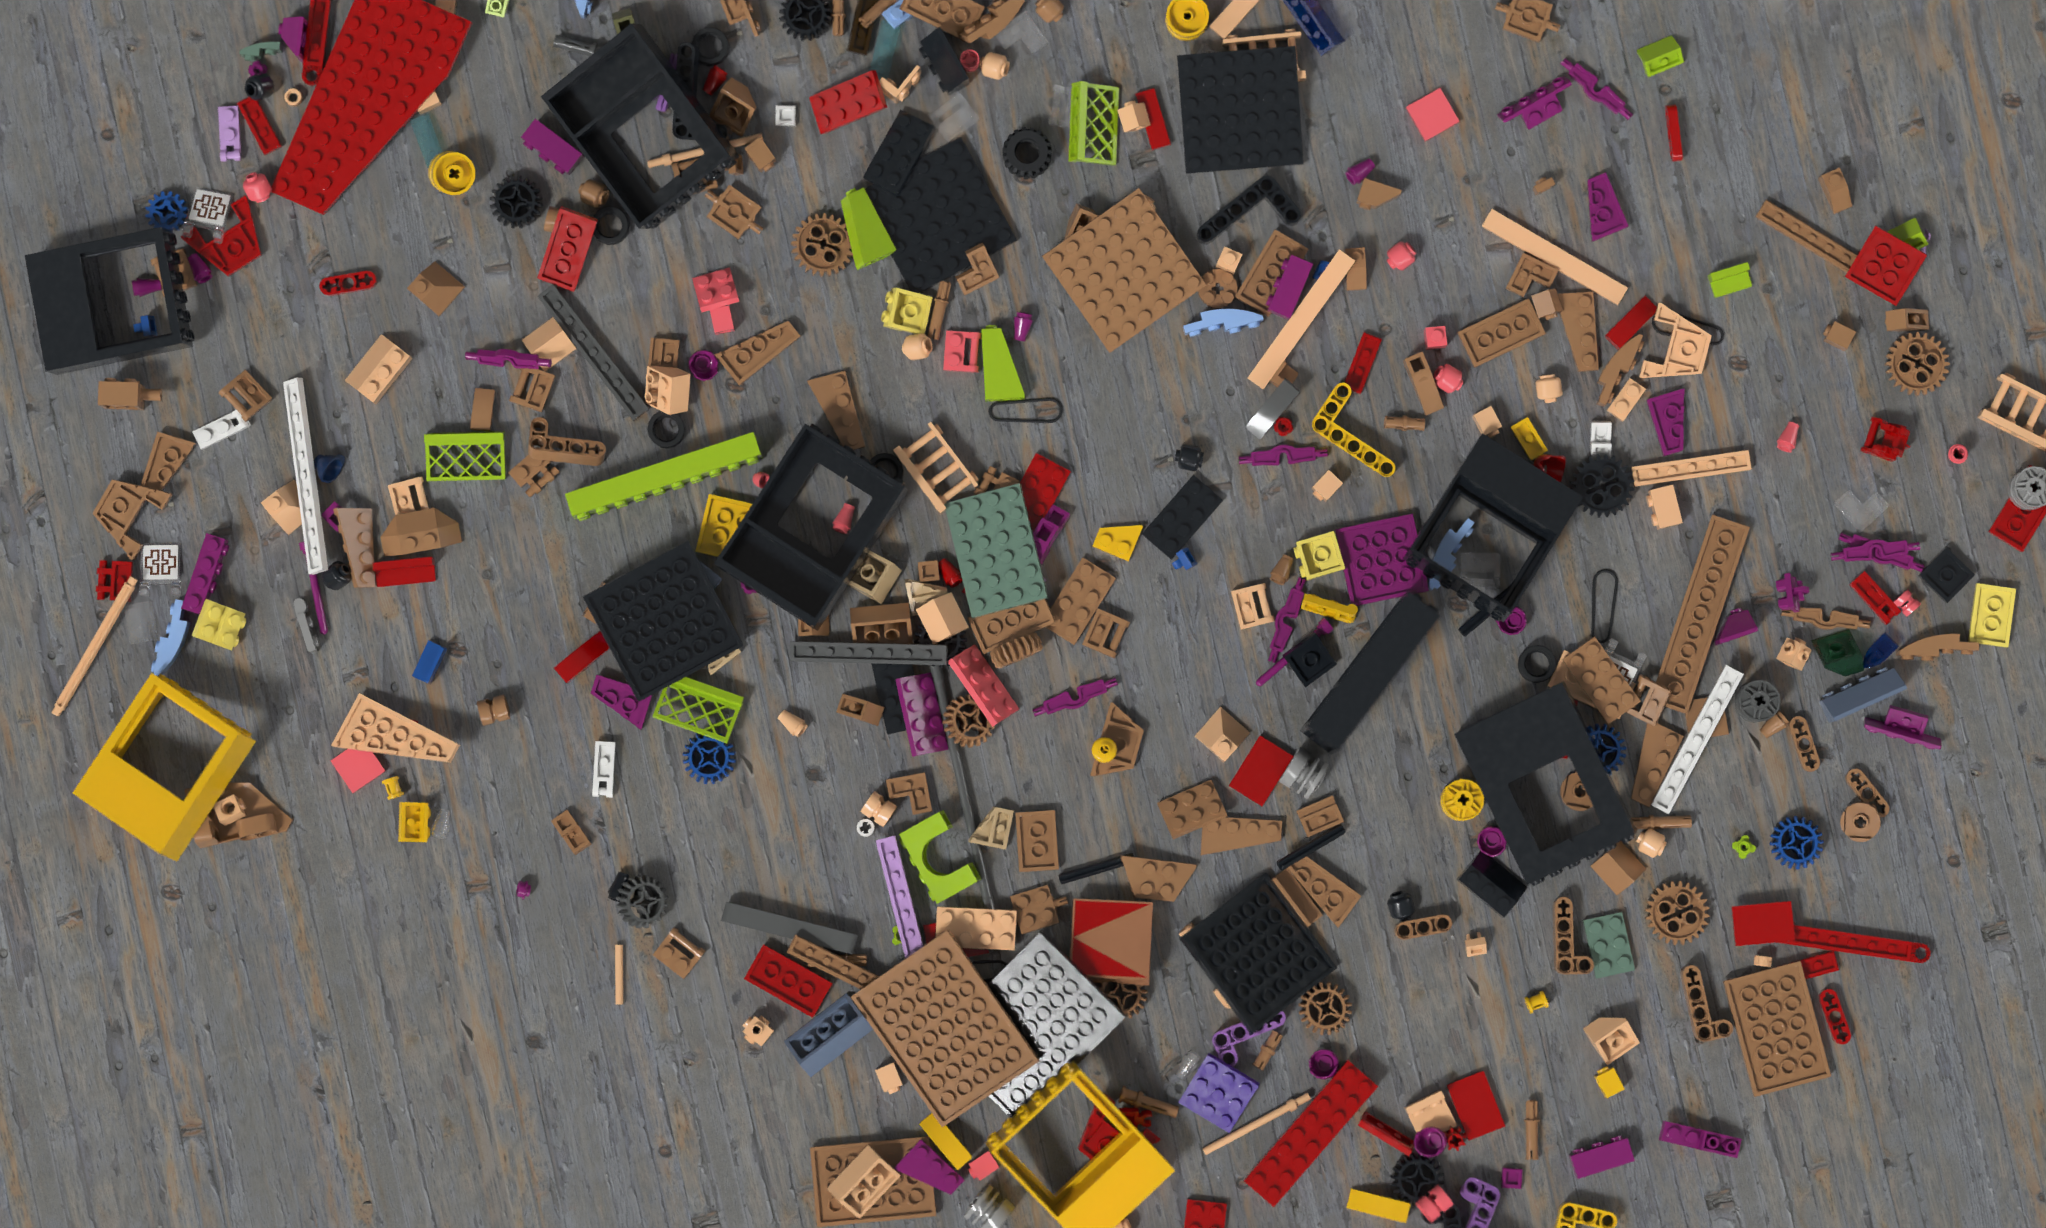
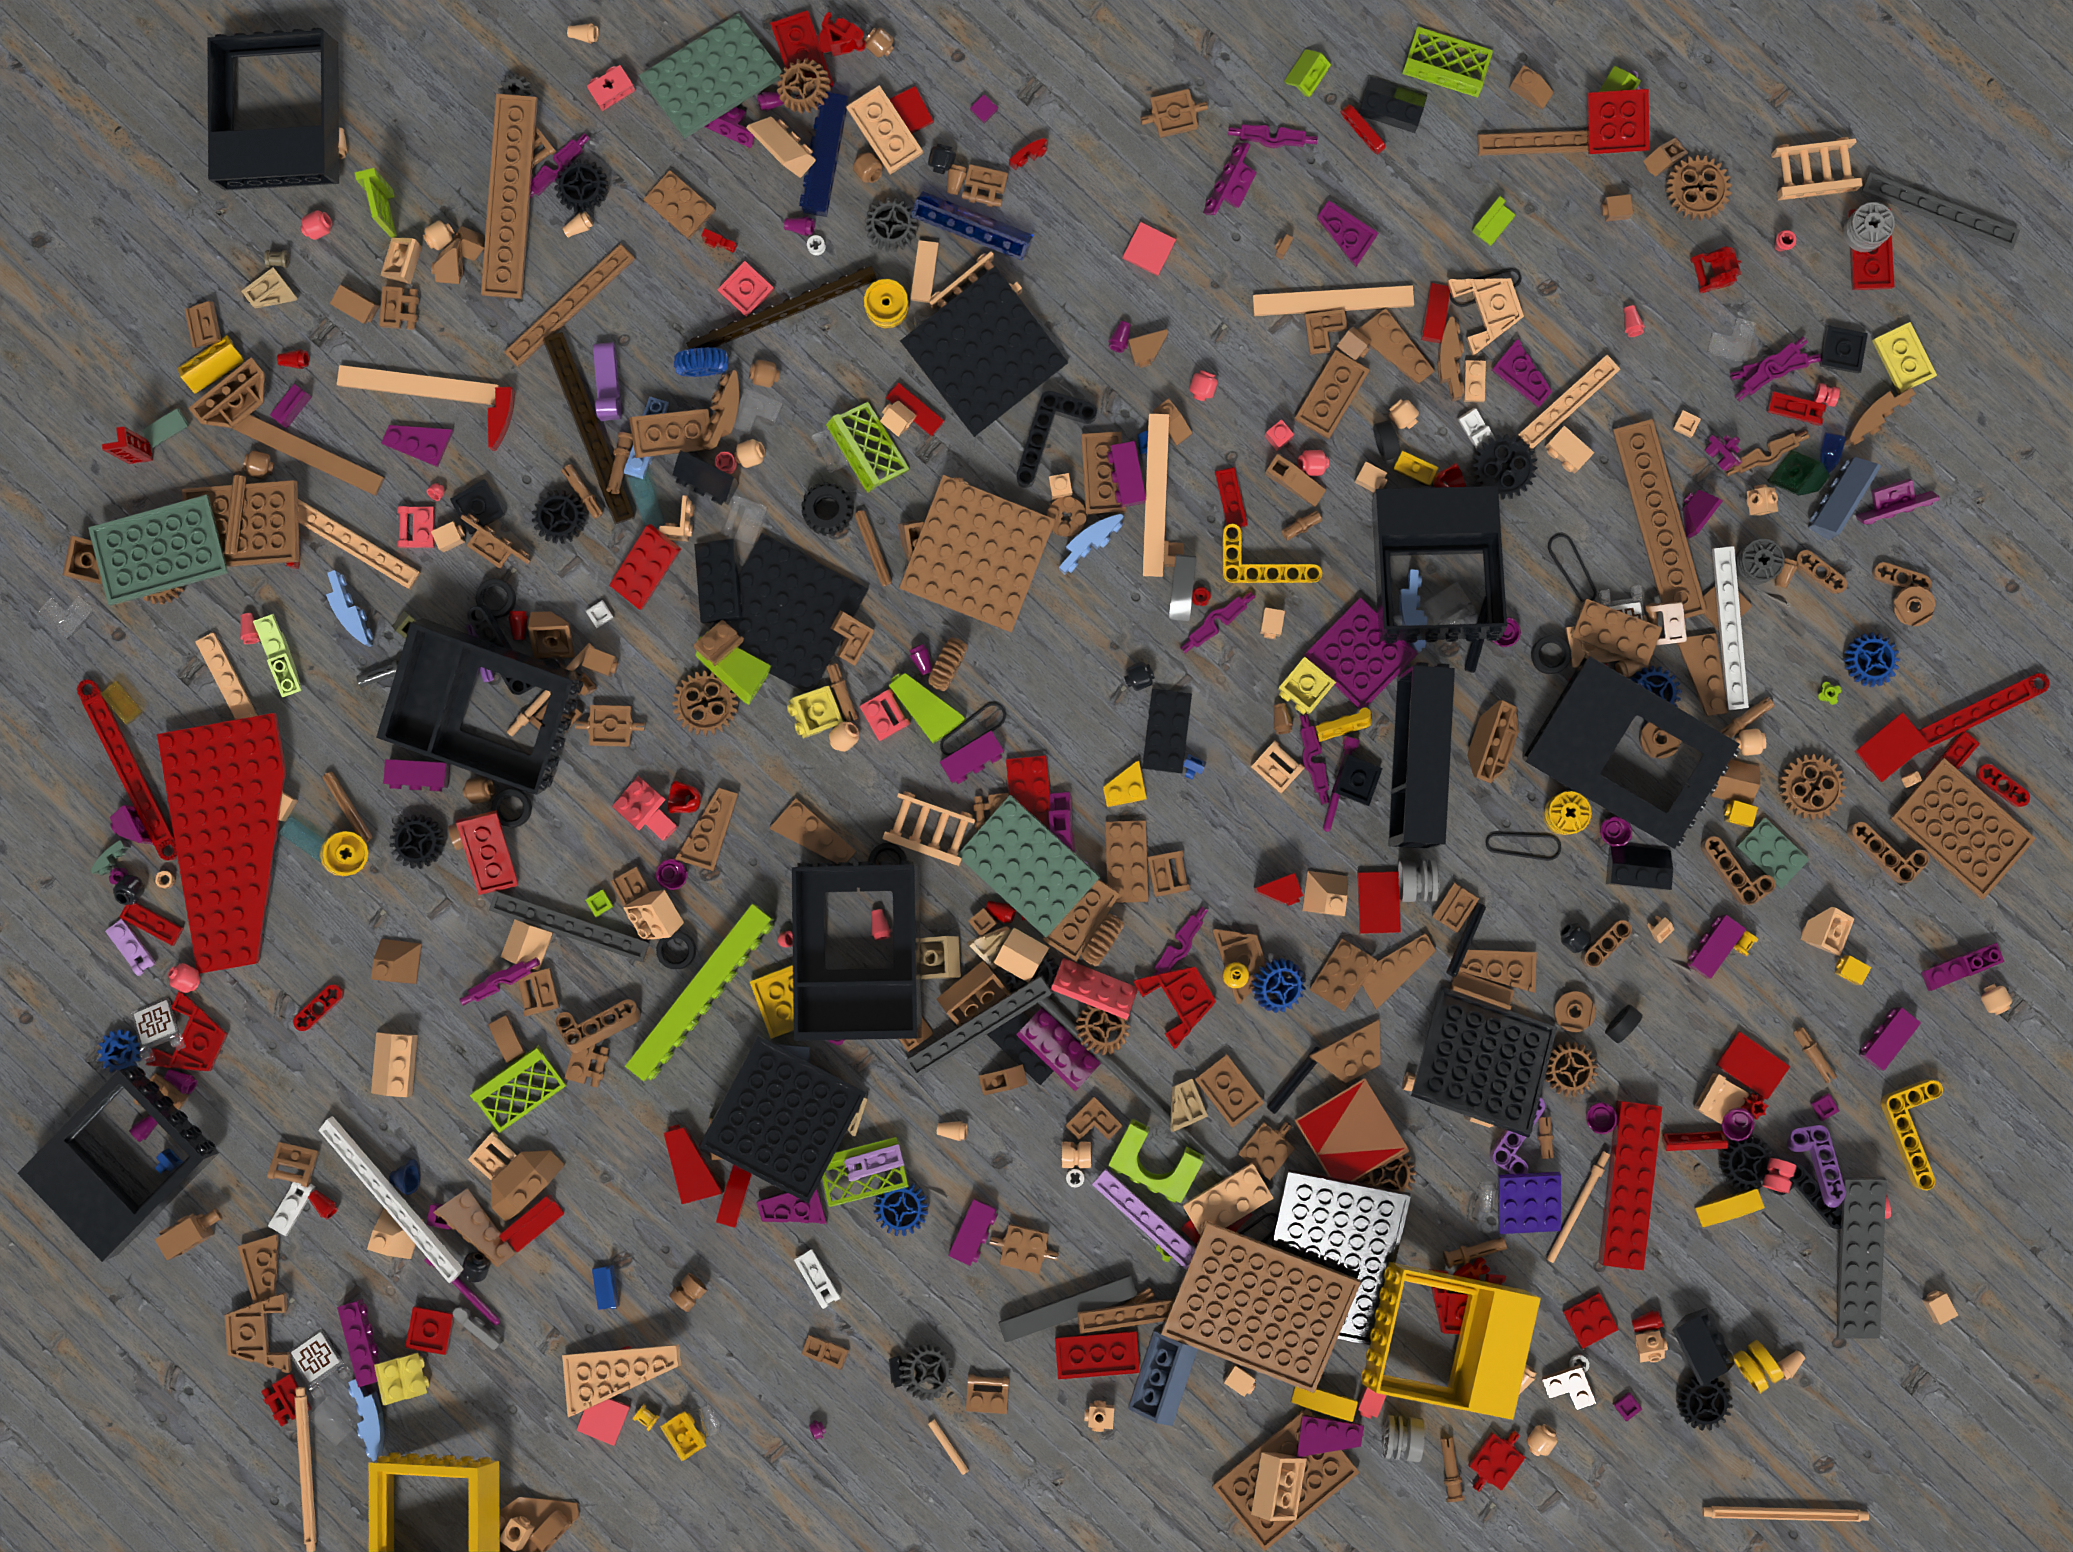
camera: 30 degrees left, 0 degrees up
(247, 444) = (323, 1205): none -> red cone
(266, 602) = (429, 1330): none -> red plate
(478, 135) = (347, 806): none -> medium nougat axle
(561, 611) = (690, 1168): none -> red slope
(630, 349) = (599, 903): none -> lime plate
(712, 705) = (874, 1162): none -> lavender plate
(749, 306) = (677, 796): none -> red hair
(754, 815) = (973, 1232): none -> magenta brick
(786, 856) = (1024, 1248): none -> medium nougat plate
(866, 203) = (718, 642): none -> medium nougat plate
(1009, 433) = (972, 758): none -> magenta brick
(1040, 344) = (947, 664): none -> medium nougat gear
(1043, 209) = (873, 548): none -> medium nougat axle
(1055, 740) = (1187, 995): none -> red wing
(1137, 767) = (1287, 991): none -> blue gear
(1187, 706) = (1282, 890): none -> red slope
(1358, 953) = (1582, 1020): none -> medium nougat plate
(1392, 1000) = (1623, 1023): none -> black tyre
(1414, 794) = (1524, 835): none -> black piece
(1441, 703) = (1493, 741): none -> medium nougat wedge
(1510, 988) = (1715, 946): none -> magenta brick
(1519, 400) = (1386, 440): none -> black tyre
(1592, 716) = (1628, 667): none -> light nougat cone
(1603, 895) = (1740, 813): none -> yellow brick
(1709, 1184) = (1996, 999): none -> light nougat head
(1712, 128) = (1393, 105): none -> black slope
(1767, 130) = (1440, 75): none -> lime fence
(1775, 550) = (1686, 424): none -> light nougat plate

